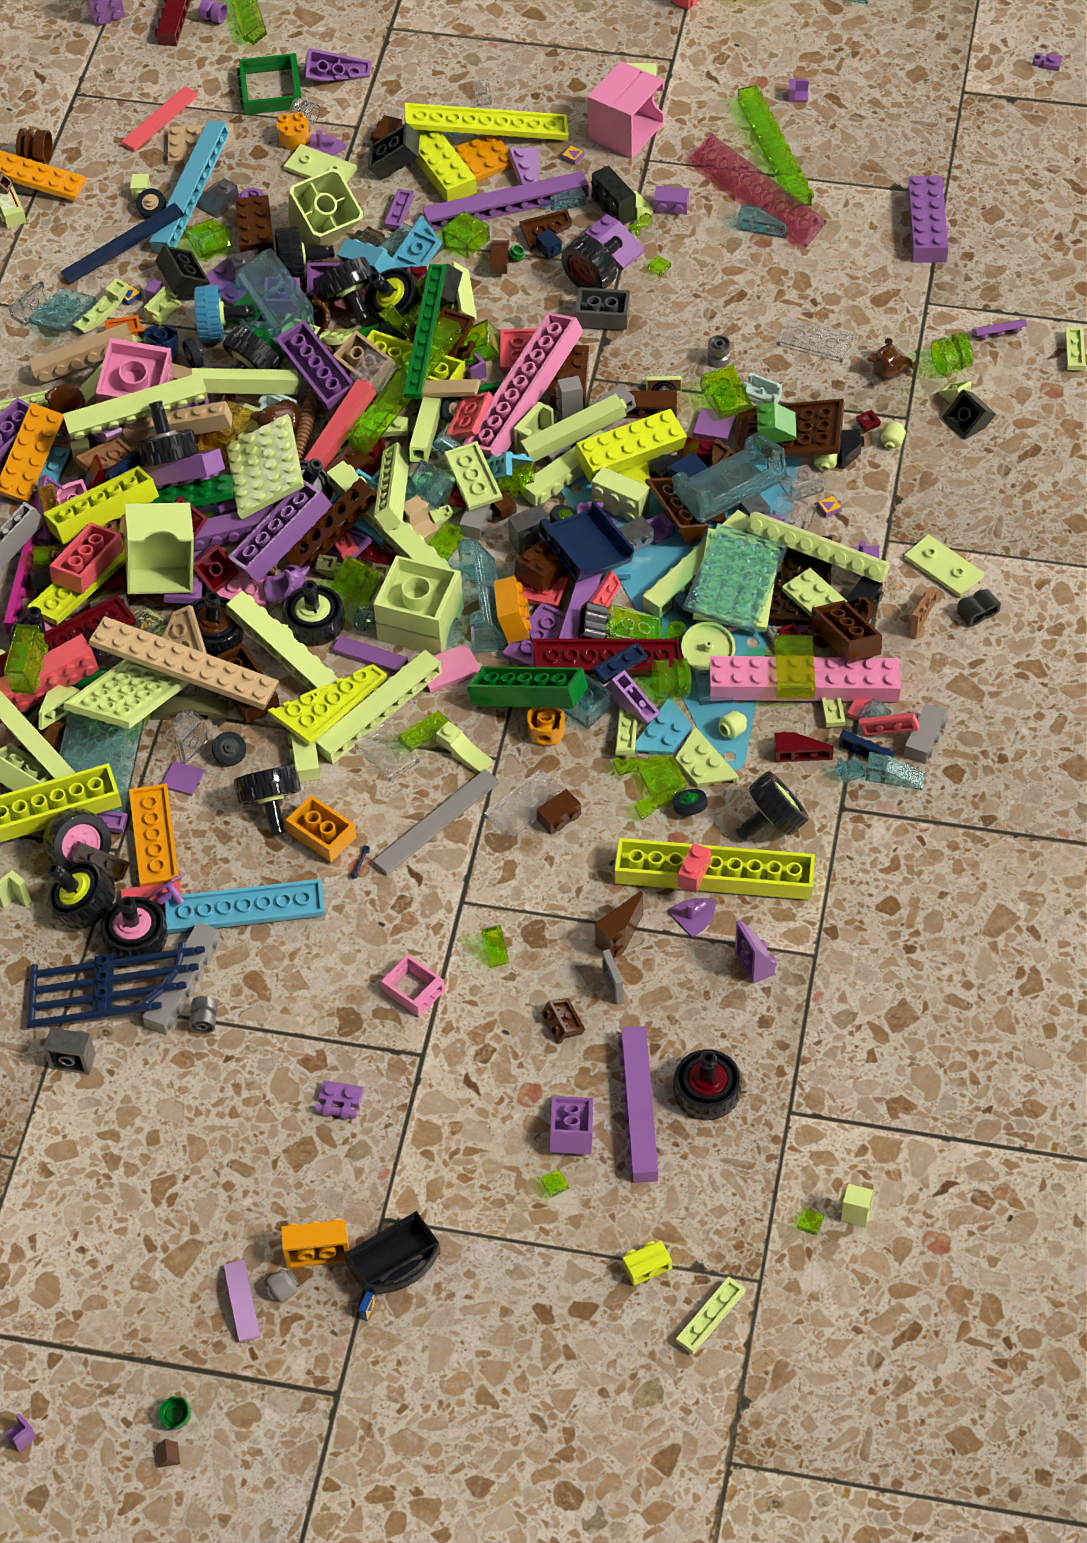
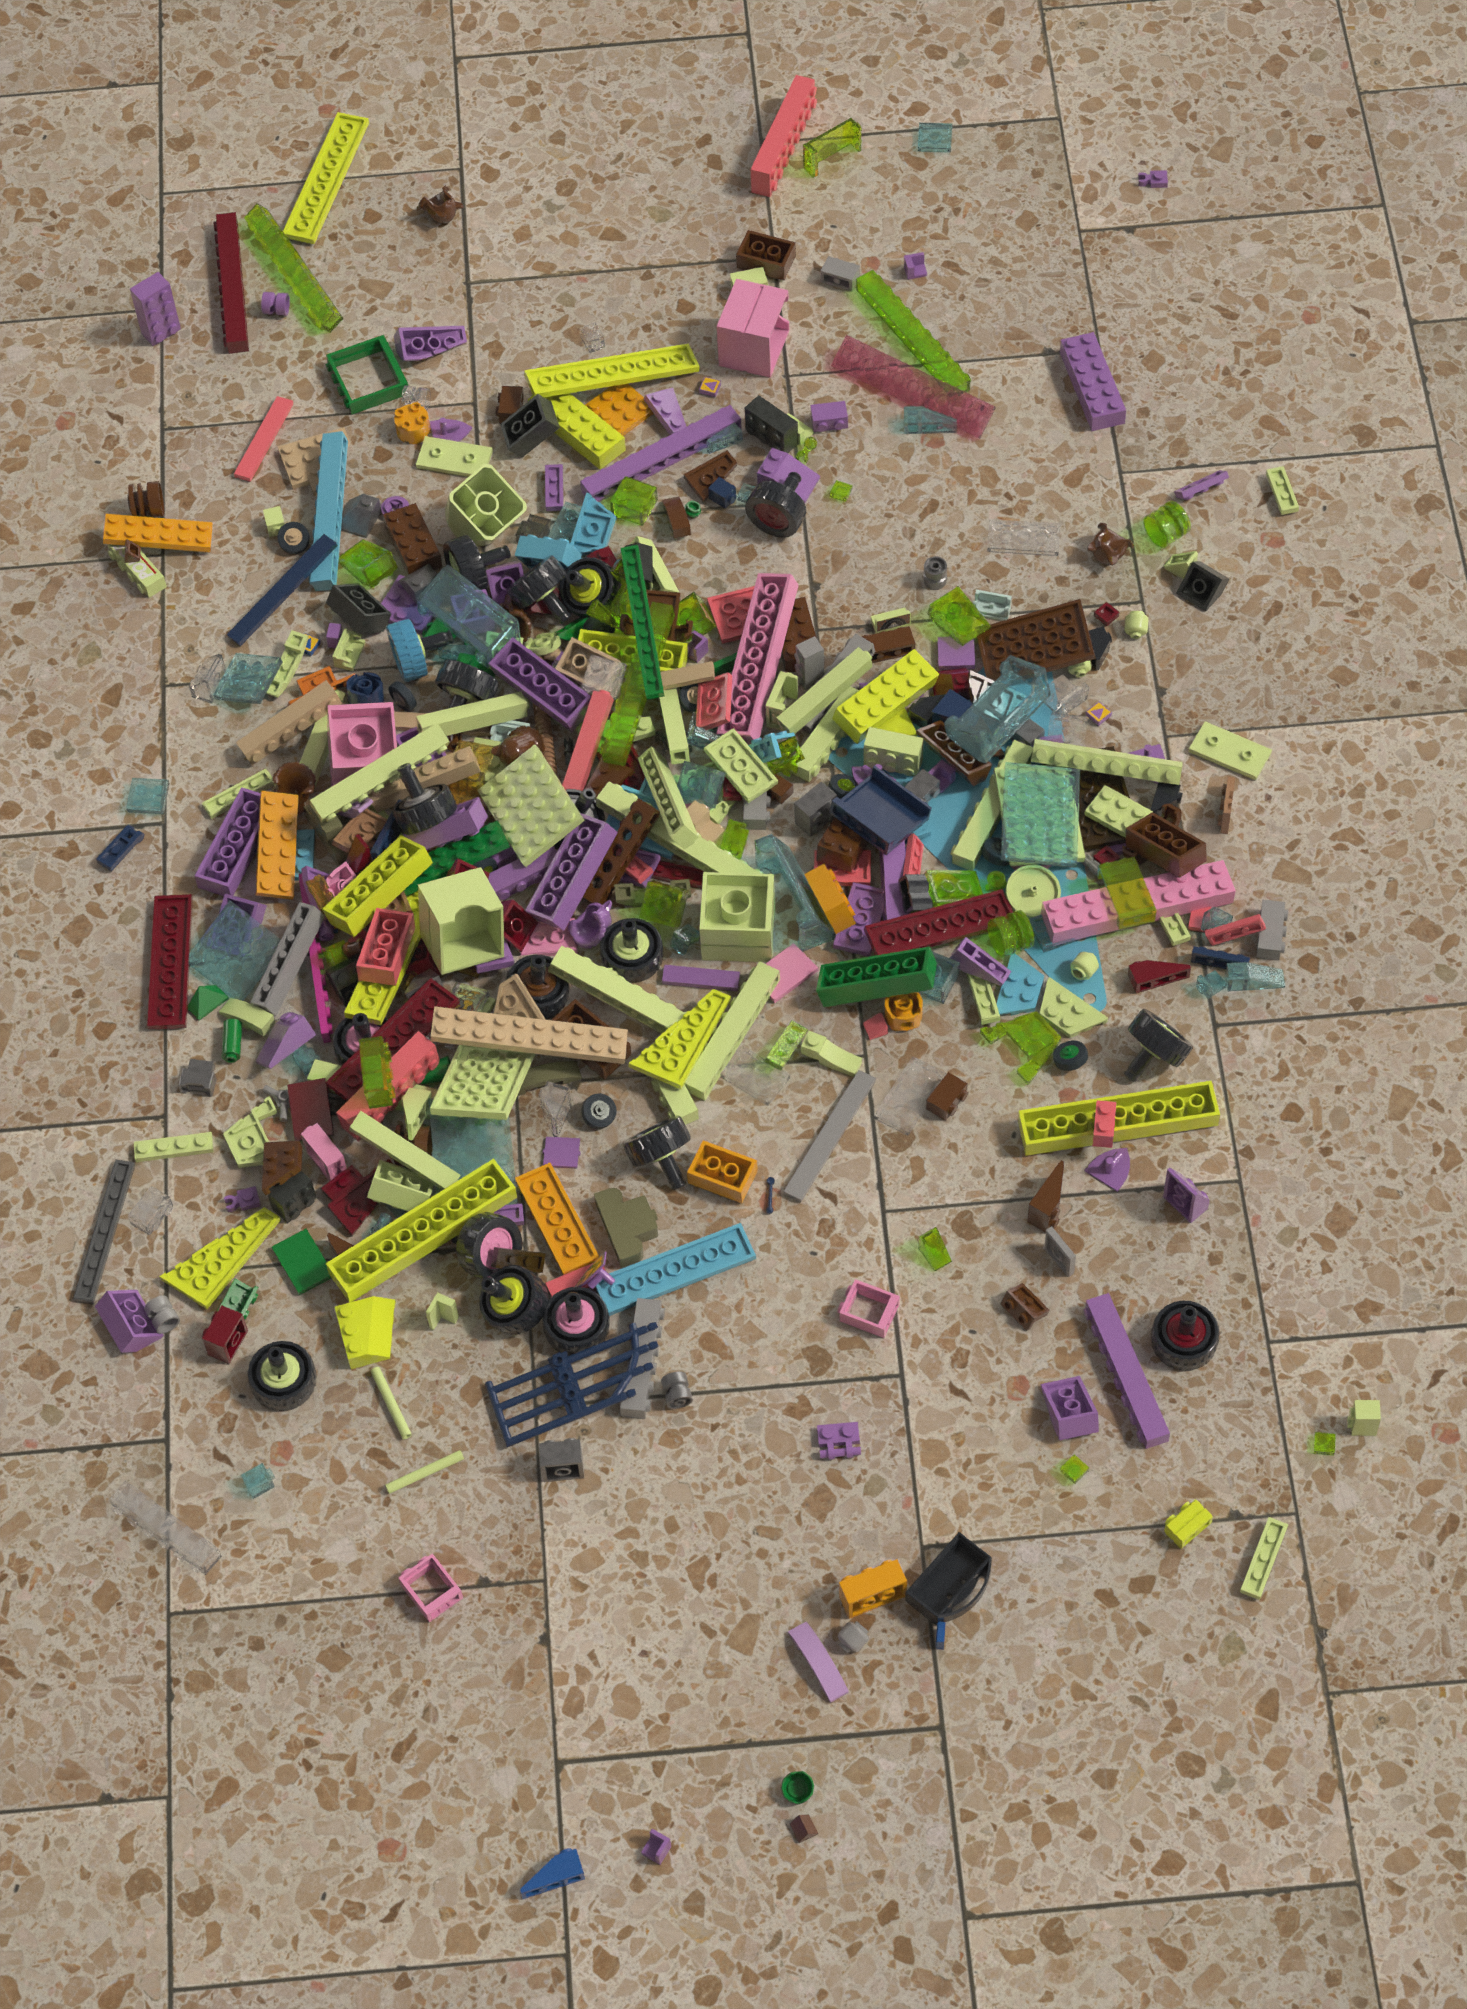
camera: 15 degrees left, 5 degrees up
(215, 854) = (626, 1224): none -> olive brick
(516, 735) = (876, 1026): none -> coral slope
(603, 308) = (803, 552): dark grey brick -> none
(618, 663) = (956, 930): dark blue tile -> none
(669, 54) = (766, 251): none -> reddish brown brick
(725, 83) = (840, 273): none -> light grey brick
(776, 422) = (1023, 639): bright green slope -> none
(978, 607) = (1278, 786): pearl dark grey brick -> none

